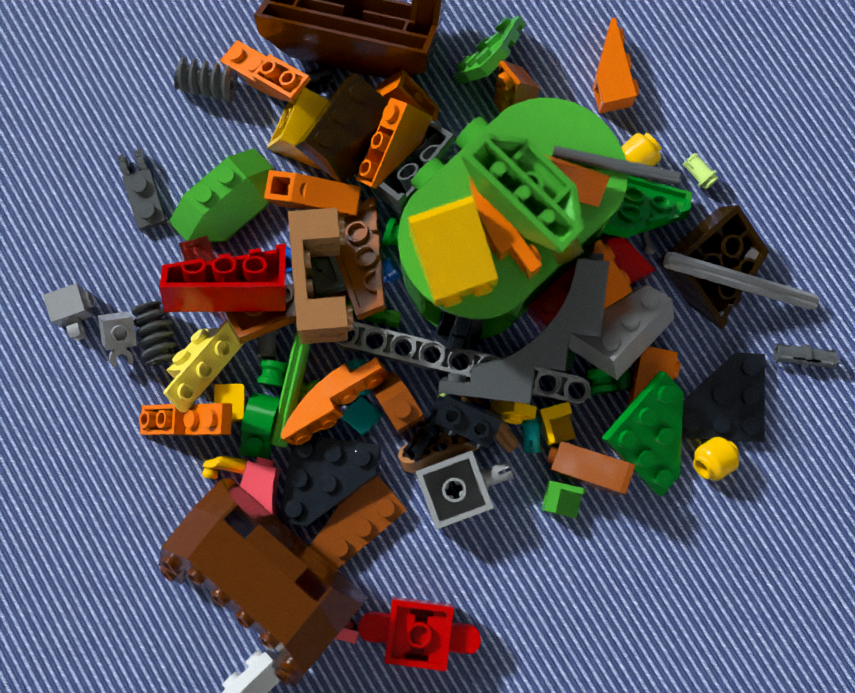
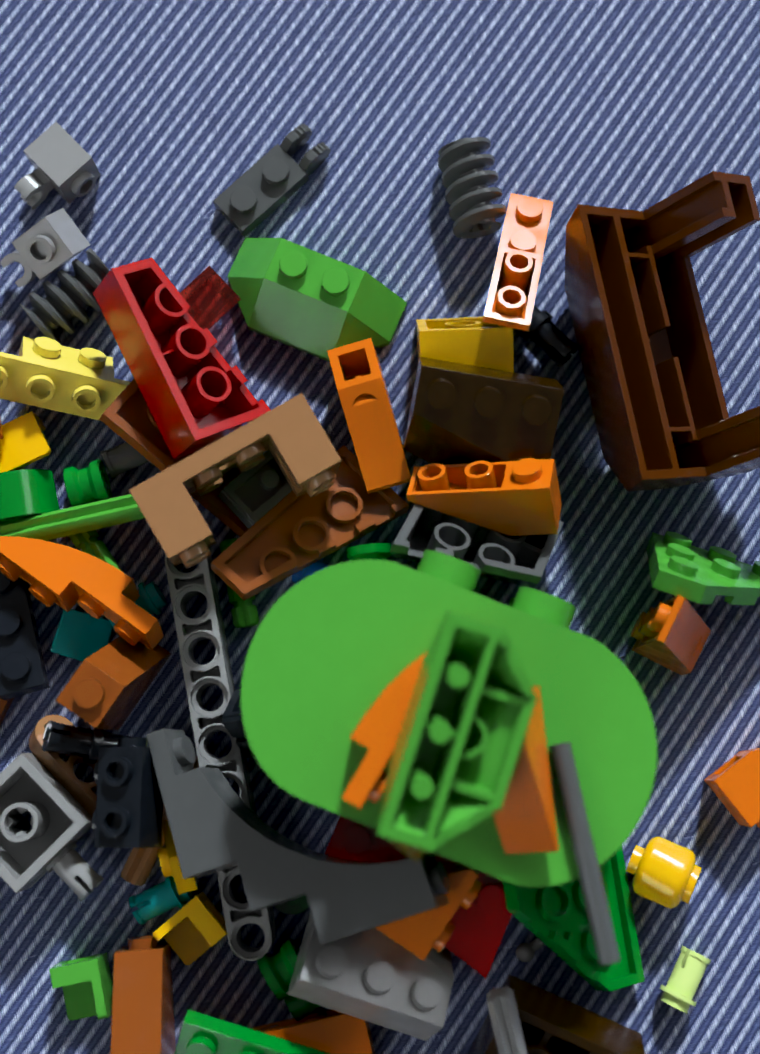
camera: 65 degrees right, 0 degrees up
(404, 88) = (583, 481): orange slope -> none
(453, 252) = (317, 665): yellow slope -> none

